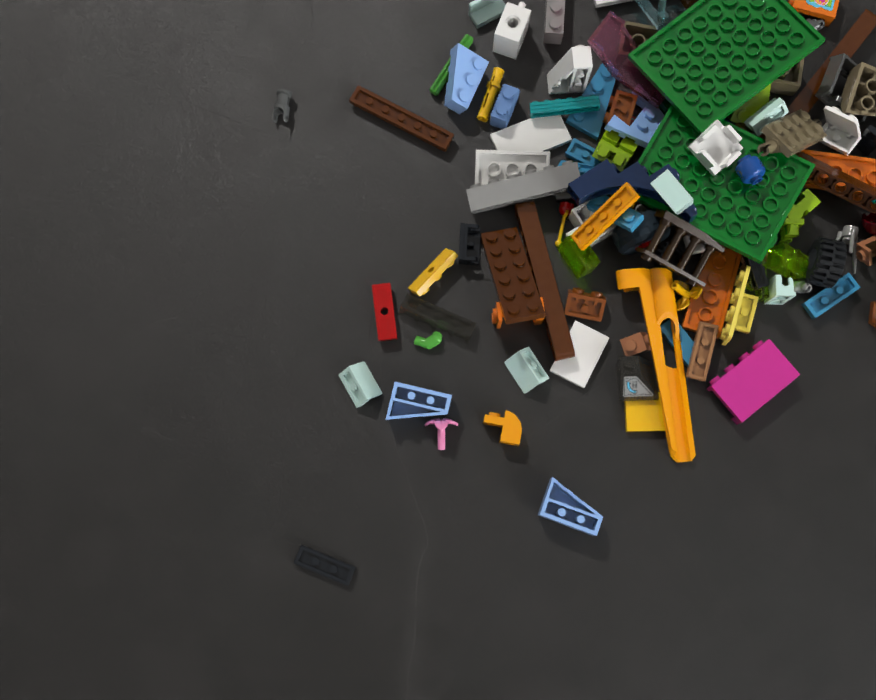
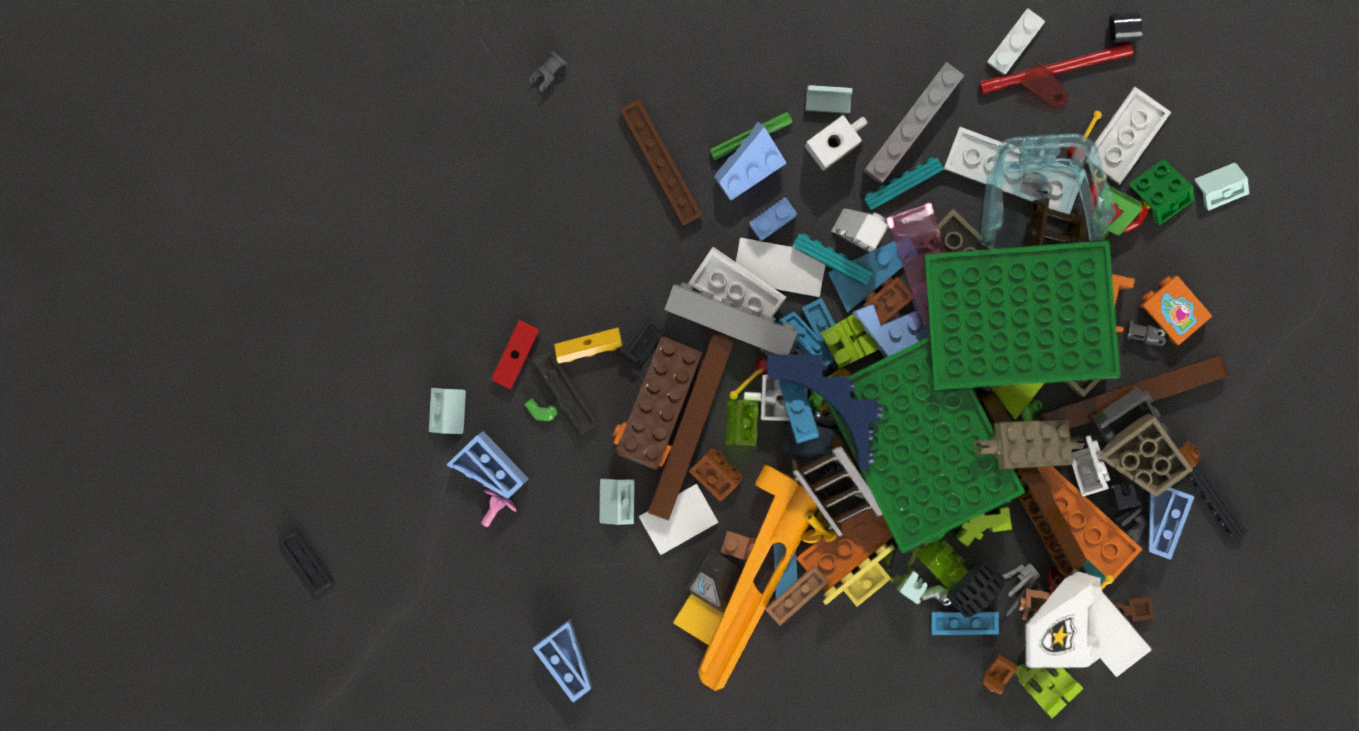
camera: 30 degrees right, 10 degrees up
(493, 87) = (767, 196): yellow pin -> none
(510, 425) = (564, 543): light orange brick -> none
(577, 29) = (900, 185): none -> teal piece
(605, 216) = (783, 409): light orange tile -> none
(672, 192) = (856, 433): light aqua hinge -> none
(717, 147) = (936, 413): white panel -> none
(750, 169) = (953, 457): blue head -> none
(753, 380) = (826, 654): dark pink panel -> none
(768, 113) = (1018, 408): light aqua panel -> none

